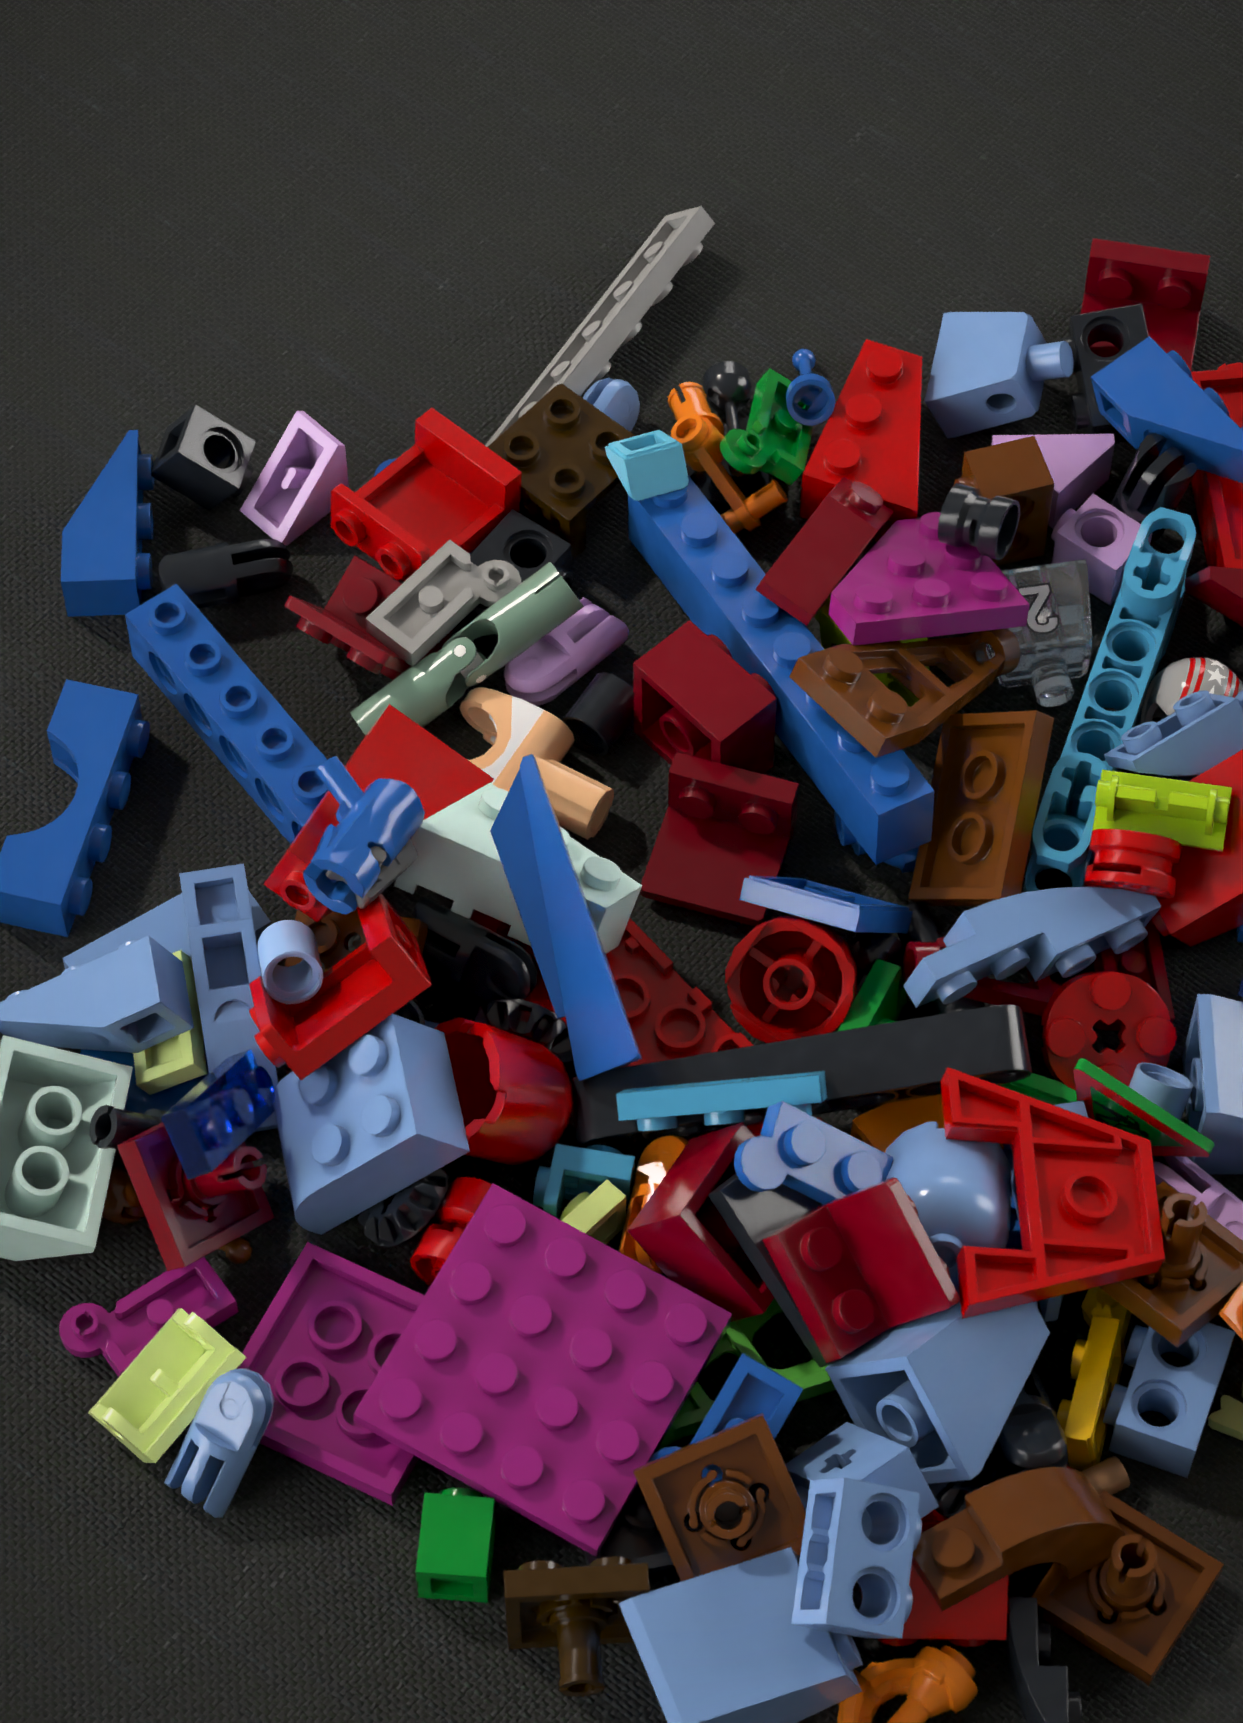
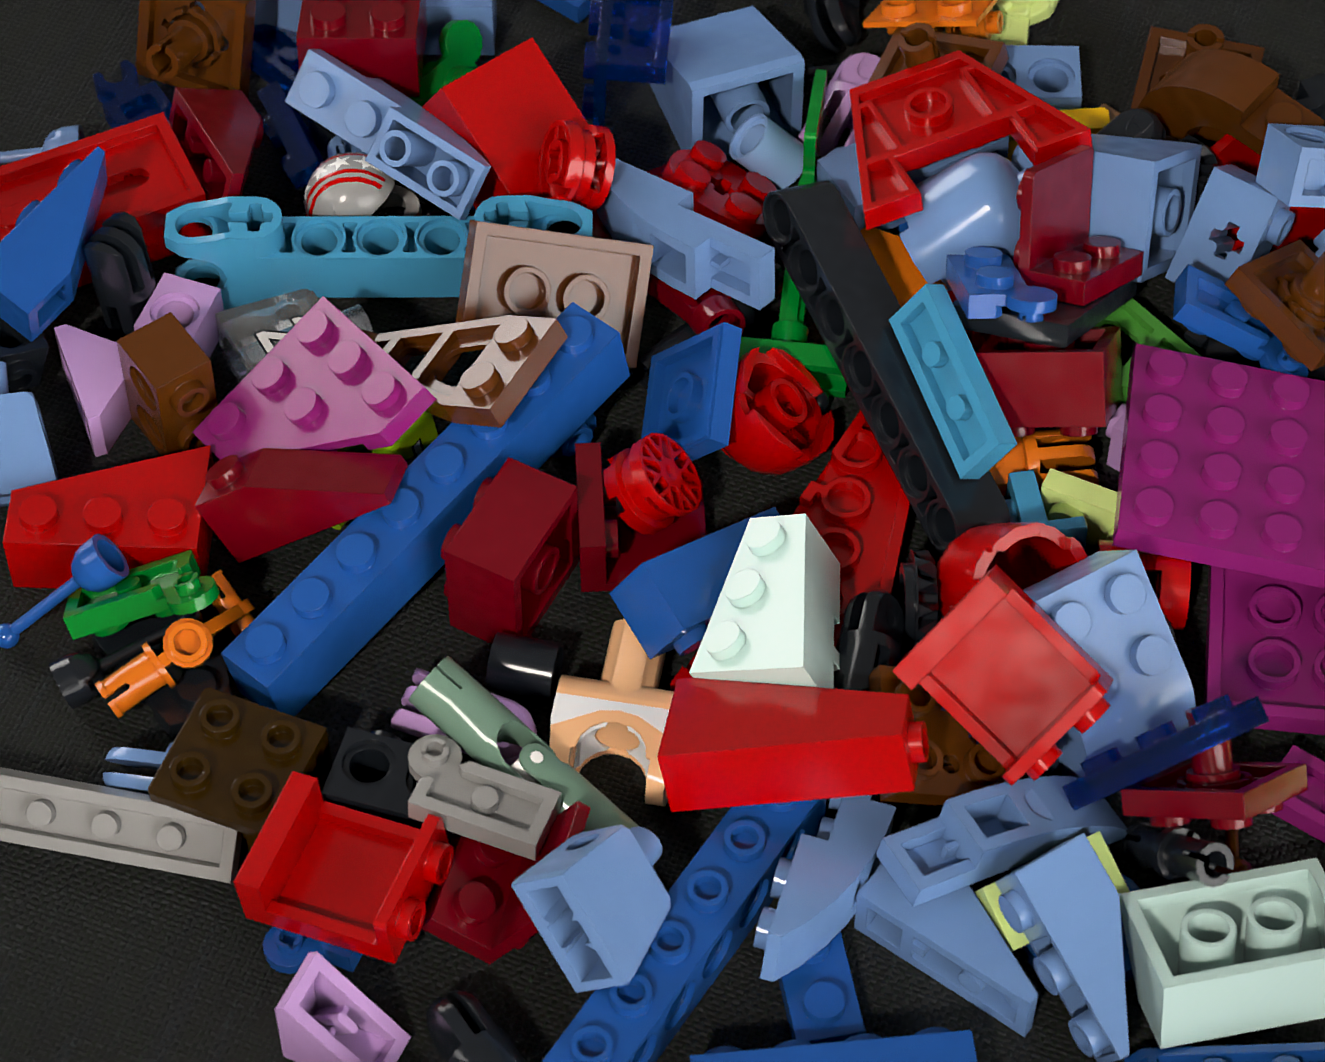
camera: 110 degrees left, 5 degrees down
(186, 839) = (822, 997): none -> blue plate
(240, 828) = (821, 883): none -> medium blue slope
(285, 638) = (597, 903): none -> medium blue torso
(296, 982) = (982, 747): light blue beam -> none
(369, 842) = (860, 676): blue piece -> none
(561, 927) = (852, 522): blue wedge -> none
(603, 817) = (675, 593): none -> blue slope
(649, 464) = (242, 661): medium azure slope -> none
(735, 840) = (652, 483): none -> red wheel
(978, 521) = (243, 343): black wheel -> none
(1164, 807) = (520, 140): lime hinge -> none

